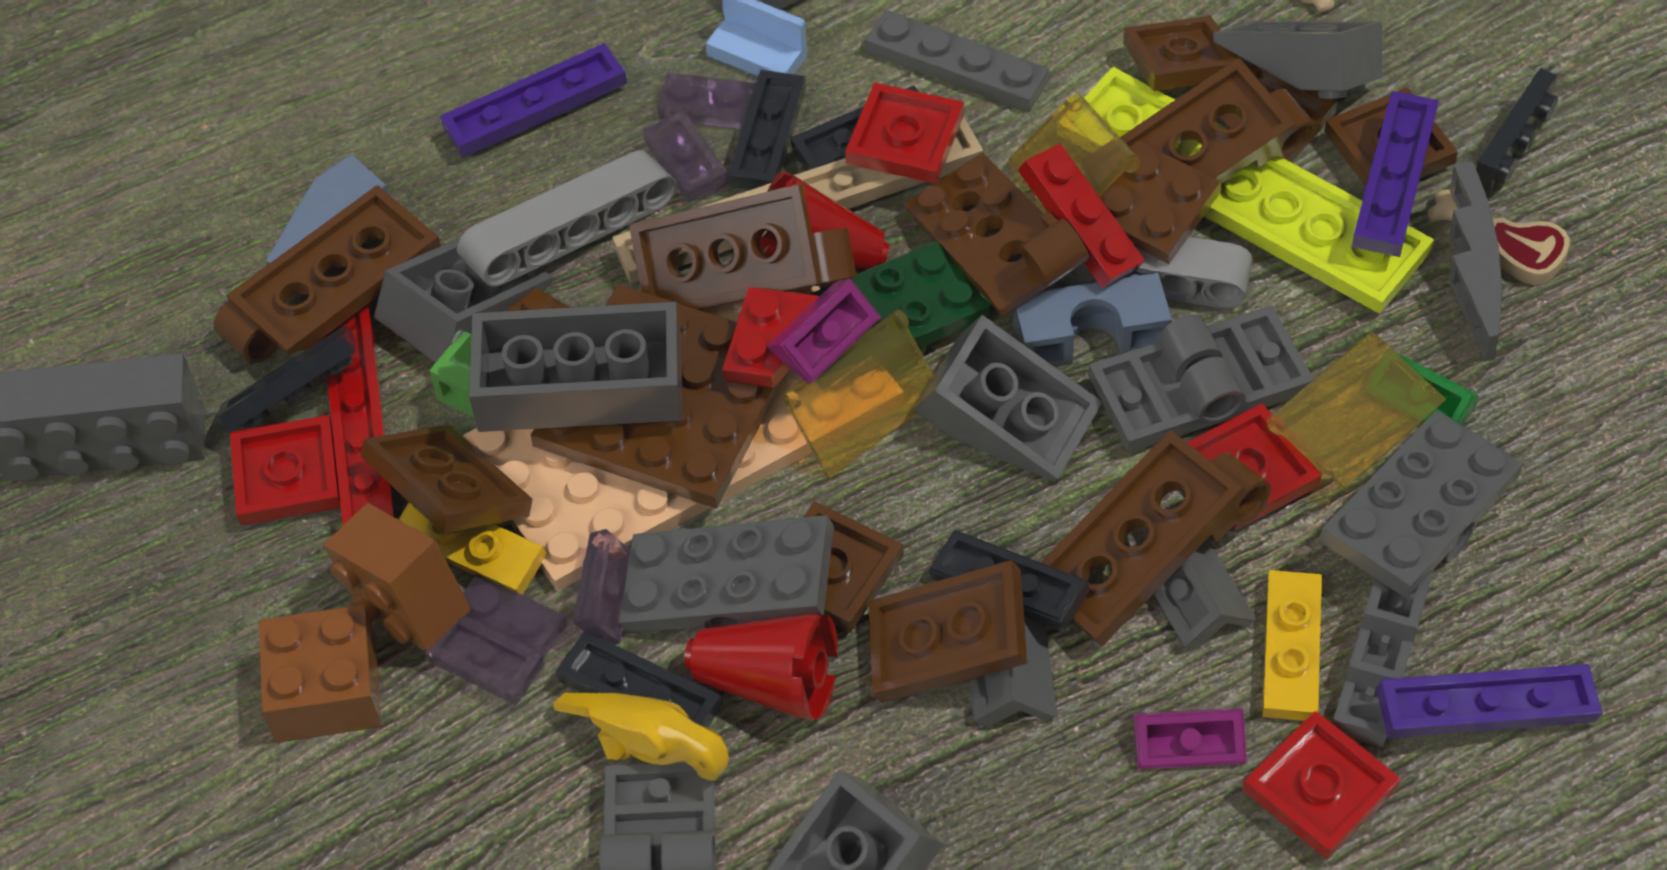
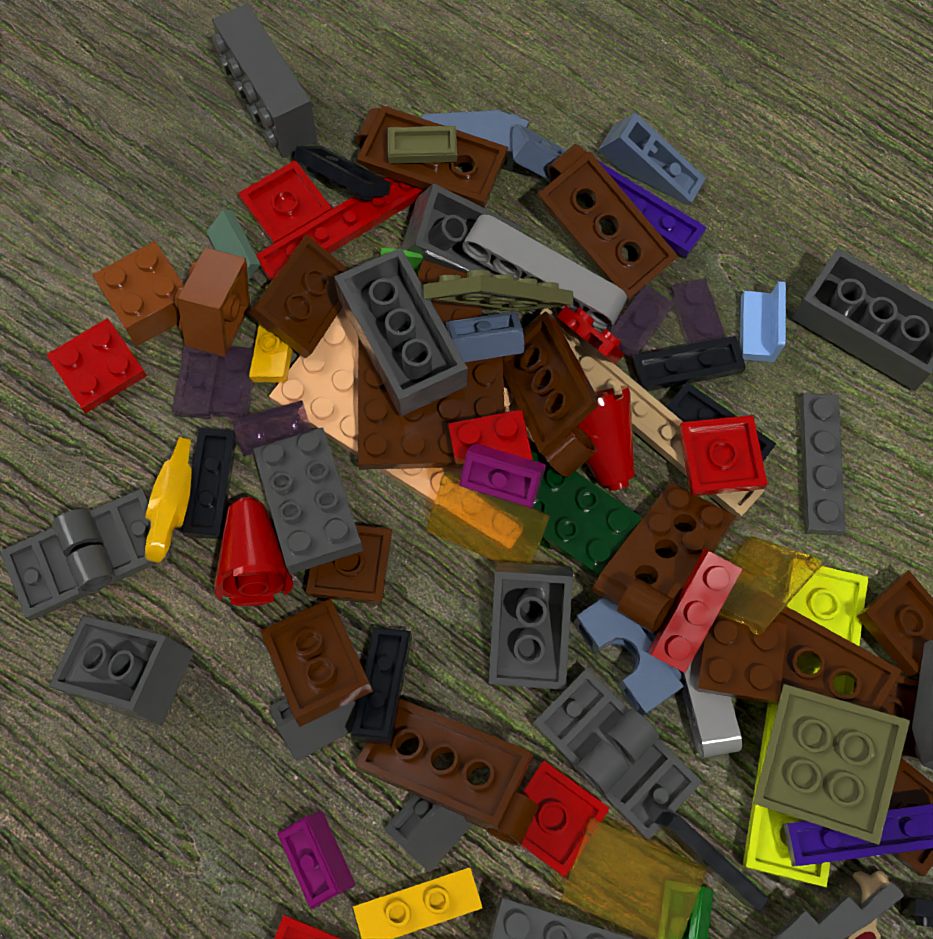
camera: 60 degrees right, 15 degrees up
(296, 550) = (230, 238): none -> sand green tile
(317, 268) = (422, 144): none -> olive tile
(383, 779) = (96, 365): none -> red plate
(406, 162) = (534, 150): none -> sand blue slope
(462, 127) = (581, 172): none -> reddish brown hinge
(471, 63) = (651, 159): none -> sand blue slope
(591, 238) = (497, 292): none -> olive plate
(631, 278) = (487, 336): none -> sand blue slope
(689, 193) = (581, 324): none -> red wing
(1308, 159) = (832, 763): none -> olive plate
(1341, 330) = (713, 860): none -> black tile

